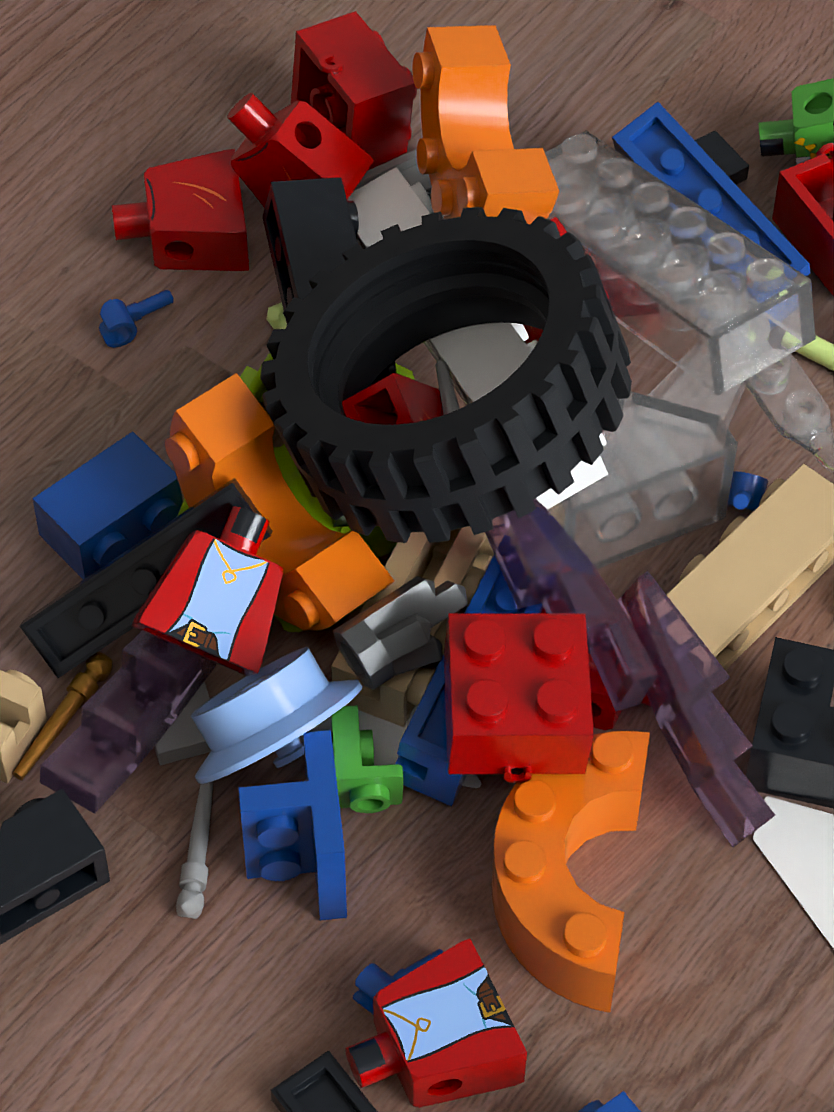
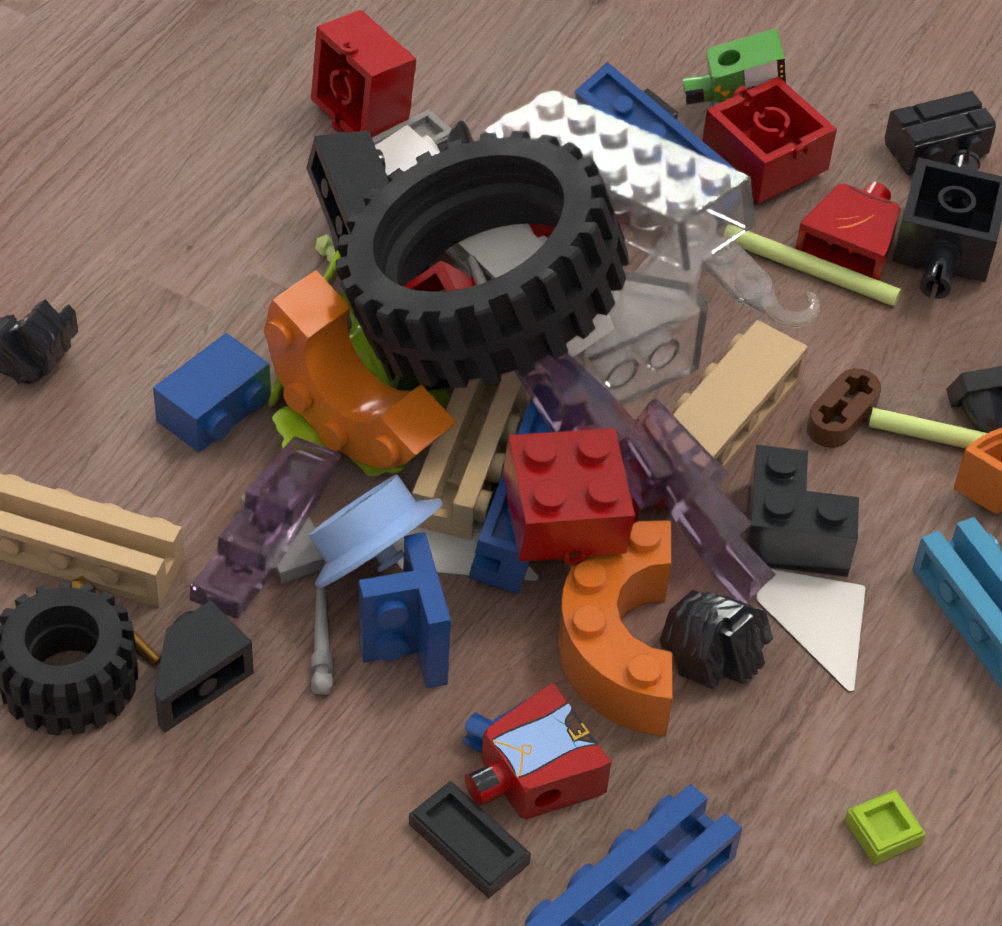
camera: 10 degrees left, 5 degrees down
(79, 691) = (207, 534): pearl gold piece -> none
(110, 598) = (255, 438): black tile -> none
(118, 319) = (199, 255): blue hand -> none
(190, 215) = (245, 173): red torso -> none
(217, 595) = (320, 442): torso -> none
(292, 146) = (322, 110): red torso -> none
(359, 781) = (457, 580): bright green bracket -> none
(397, 630) = (463, 459): dark grey rock -> none
(468, 131) = (463, 84): orange brick -> none
(689, 890) = (716, 638): none -> black hair
(746, 490) = (714, 346): blue hand -> none

